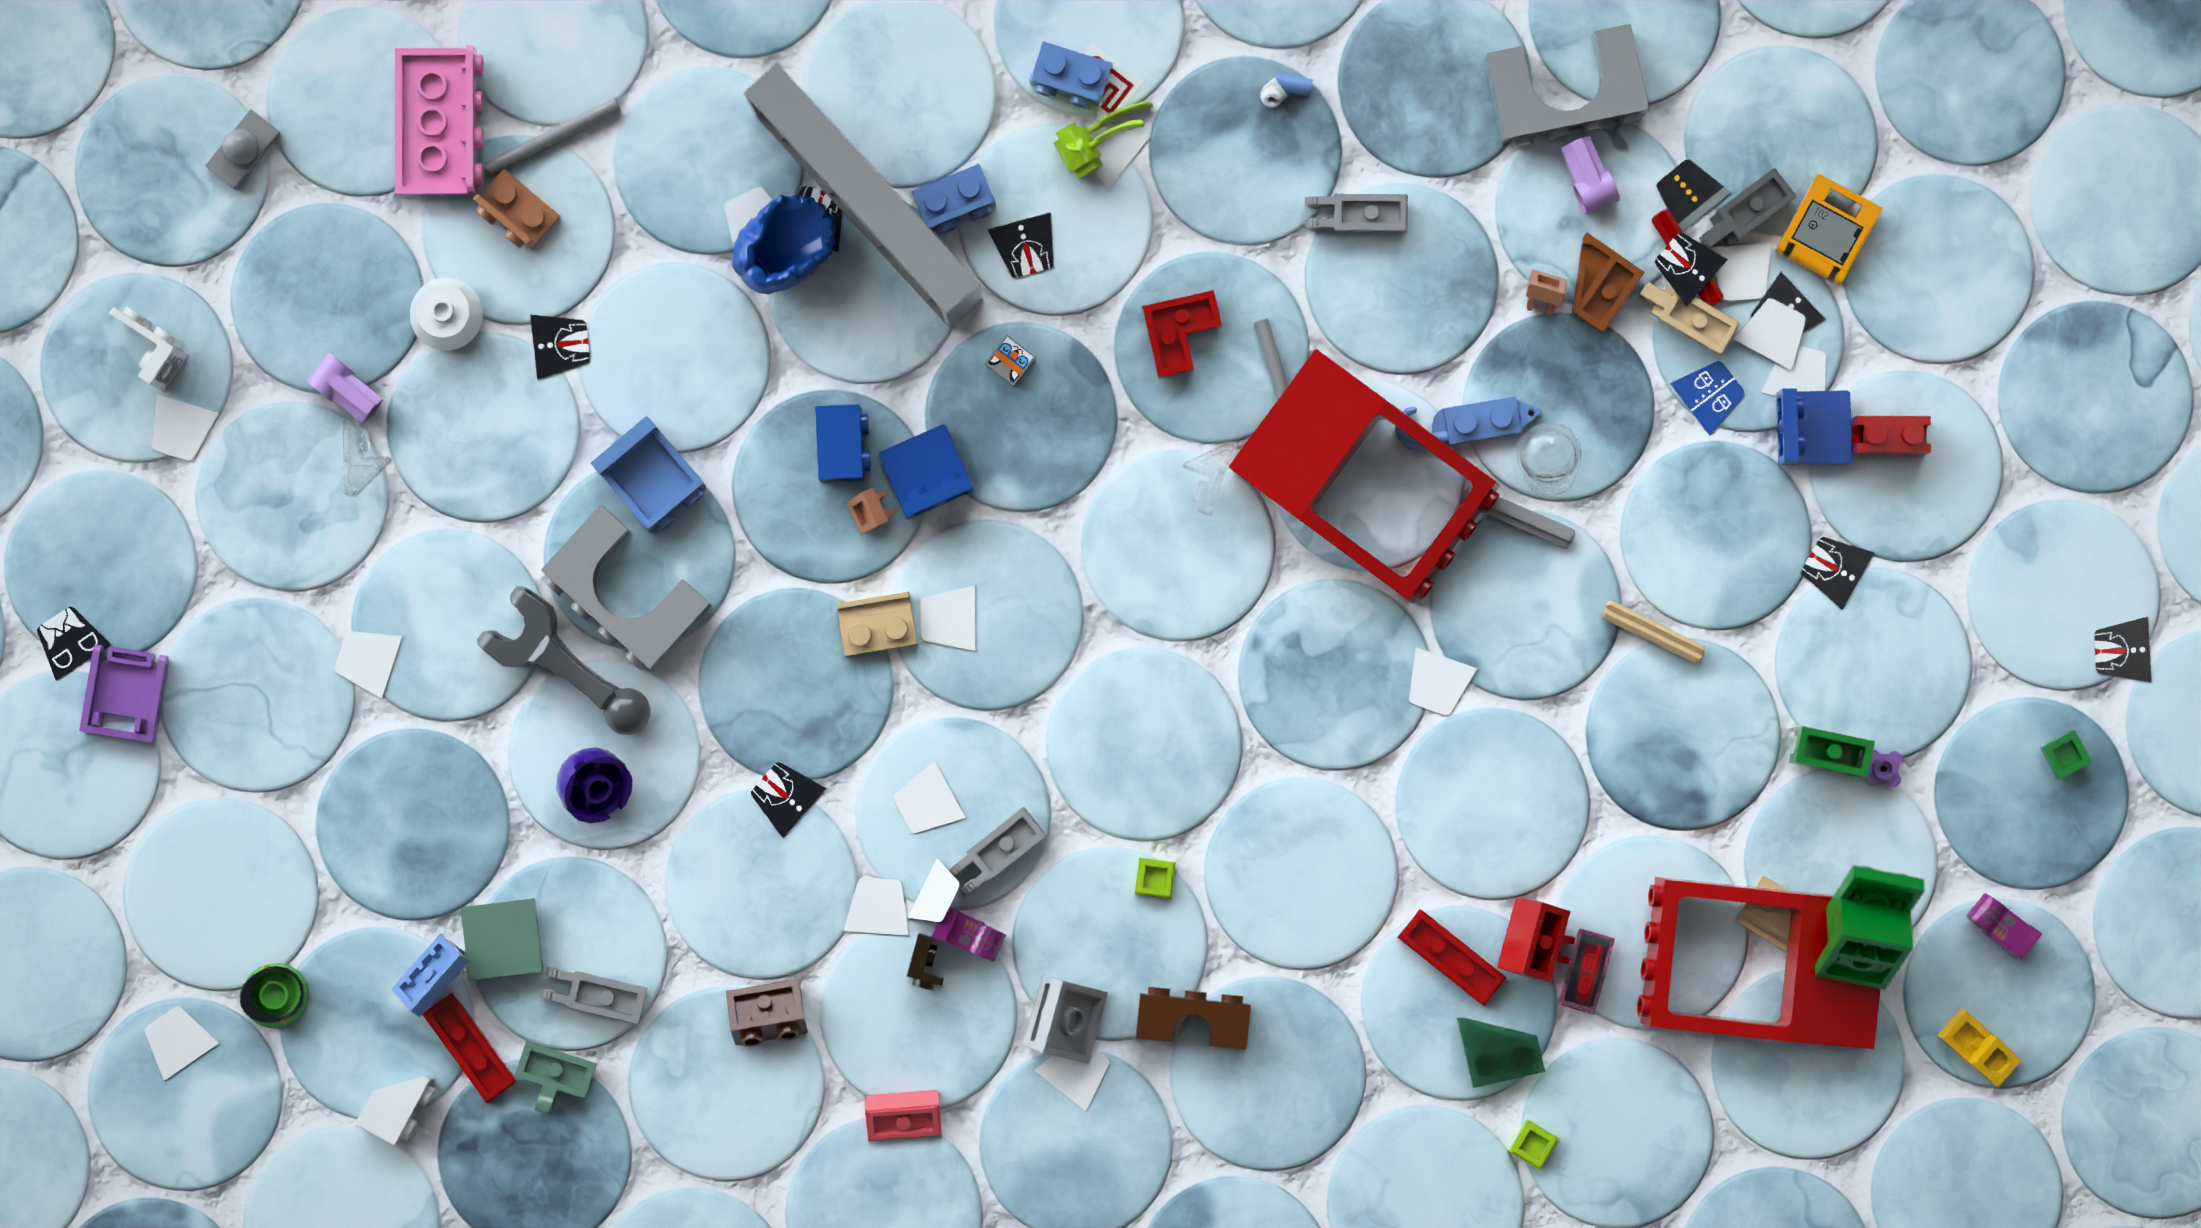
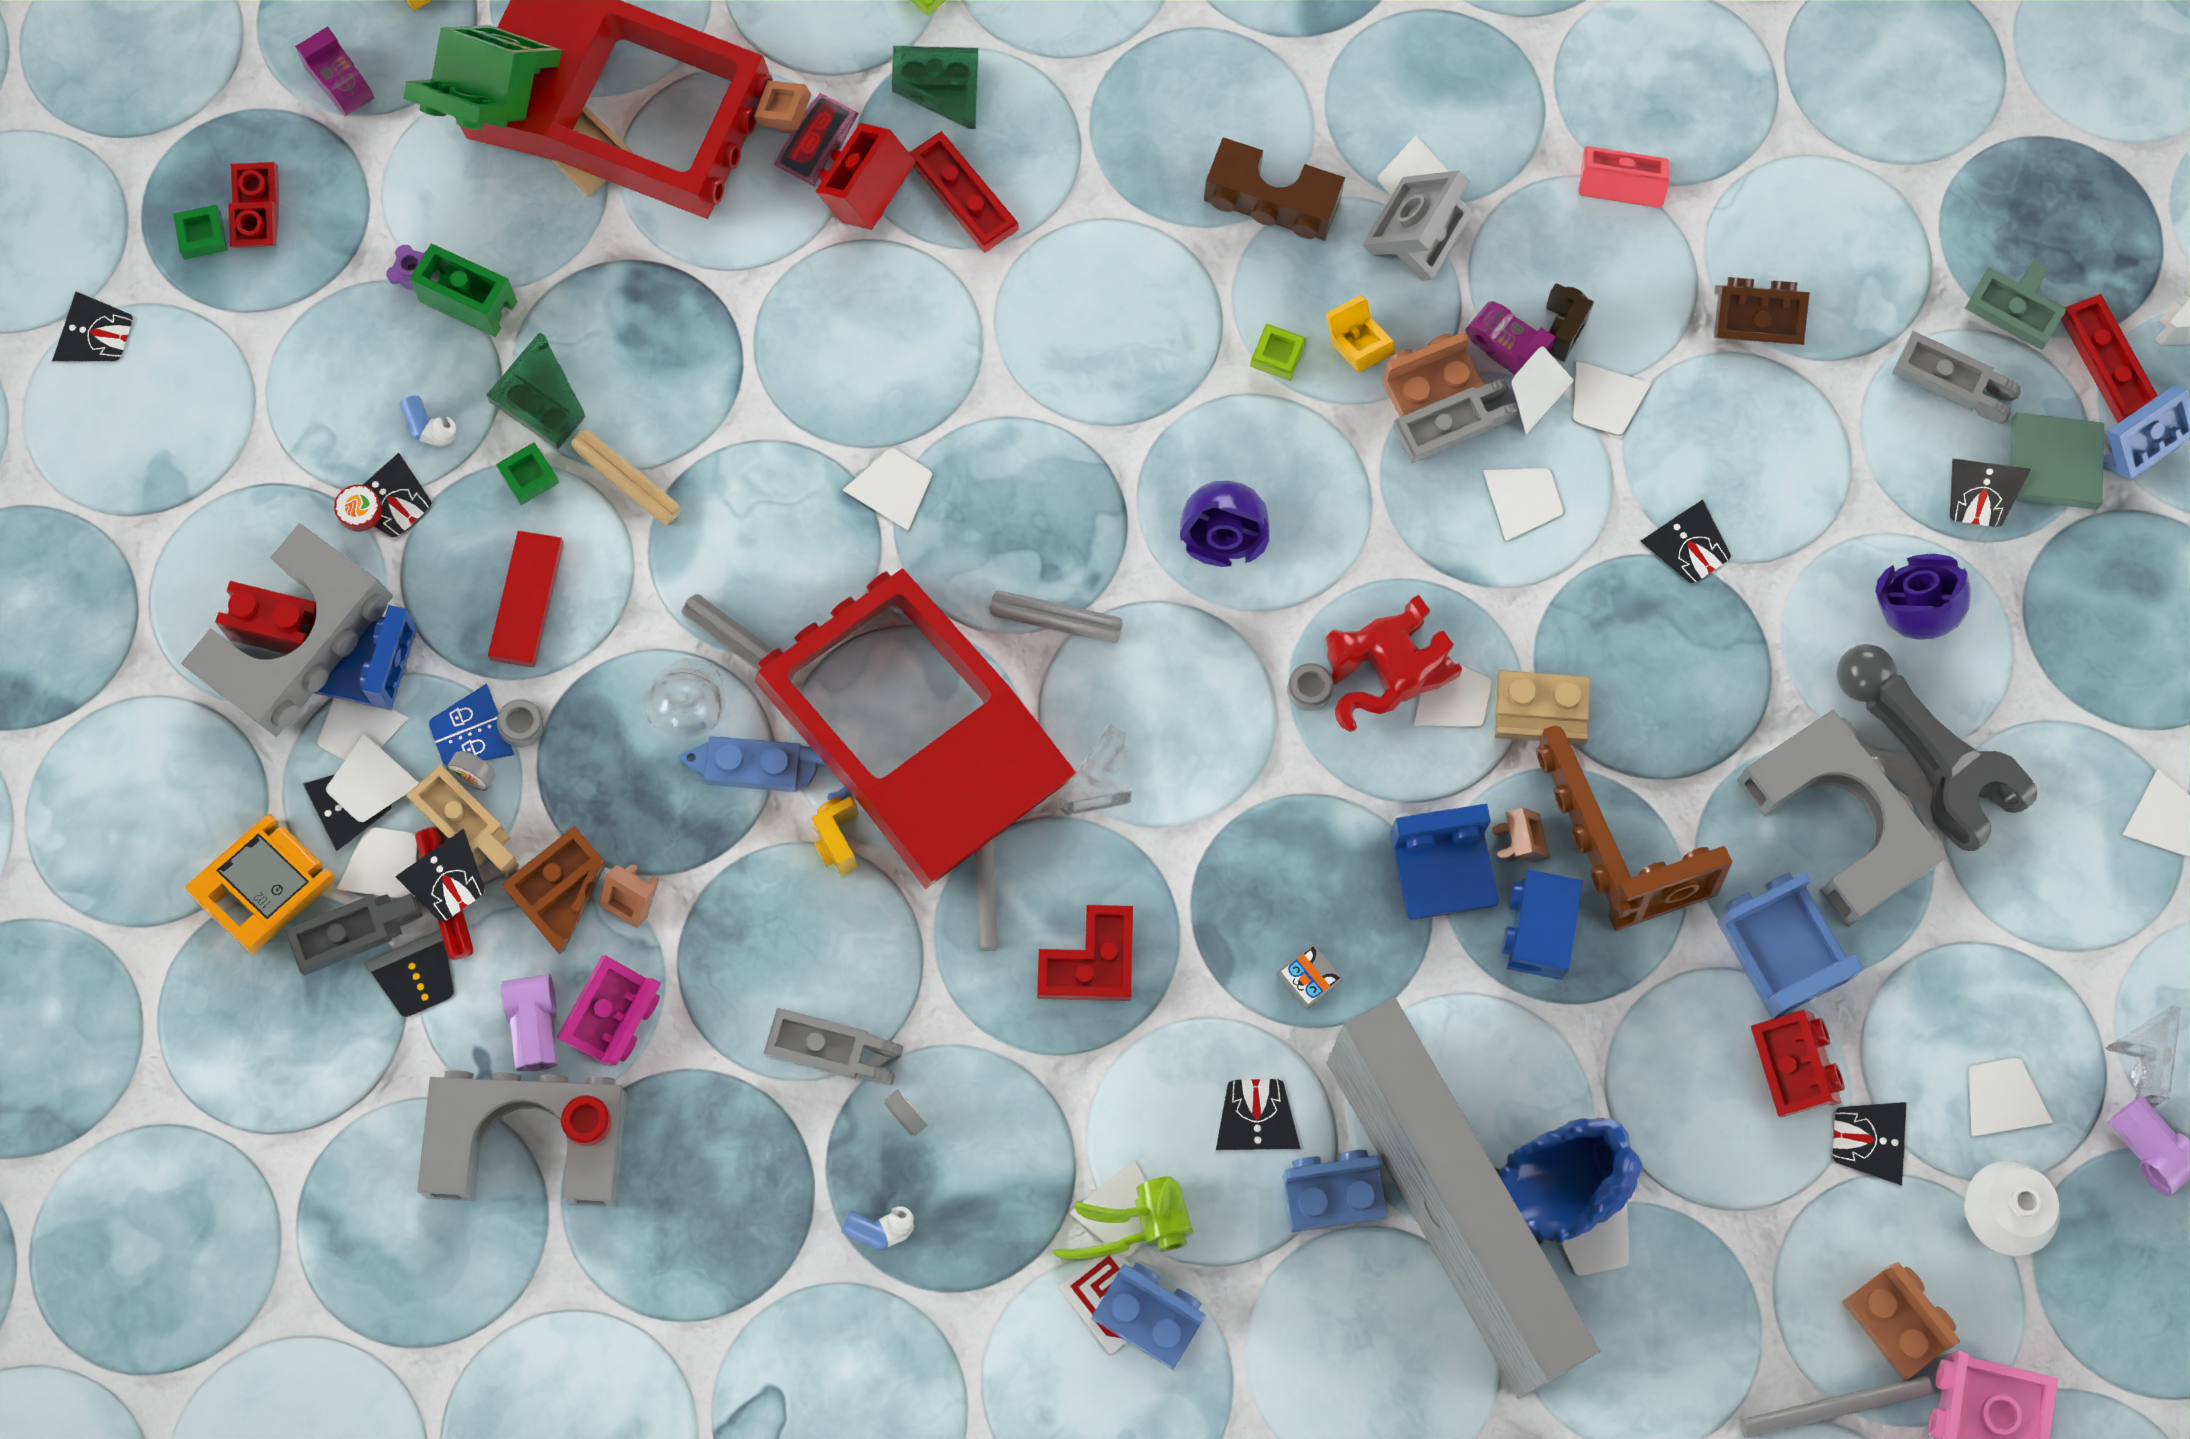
camera: 165 degrees left, 15 degrees down
(463, 401) = (2003, 1098): none -> white sticker
(556, 897) = (1984, 491): none -> black sticker
(625, 384) = (1797, 1062): none -> red bracket
(818, 518) = (1658, 886): none -> dark orange bracket
(999, 627) = (1396, 659): none -> red animal
(1023, 883) = (1430, 373): none -> nougat bracket
(1063, 594) = (1310, 687): none -> light grey tile
(1092, 903) = (1358, 335): none -> yellow bracket
(1163, 711) = (1224, 523): none -> dark purple cylinder
(1277, 601) = (1056, 616): none -> light grey axle
(1288, 177) = (905, 1113): none -> light grey tile
(1401, 368) = (832, 844): none -> yellow bracket
(1522, 104) = (586, 1120): none -> red tile
(1531, 196) = (609, 1012): none -> dark pink bracket
(1621, 989) = (782, 105): none -> nougat tile
(1672, 407) = (520, 723): none -> light grey tile
(1696, 357) = (471, 770): none -> light grey tile
(1700, 510) = (525, 599): none -> red tile
(1731, 612) = (527, 473): none -> green plate
(1743, 683) = (538, 394): none -> clear green wing
(1826, 632) = (426, 429): none -> arm
(1835, 461) = (278, 687): none -> light grey arch
(1857, 550) = (358, 508): none -> tile
(2031, 792) = (254, 205): none -> red slope

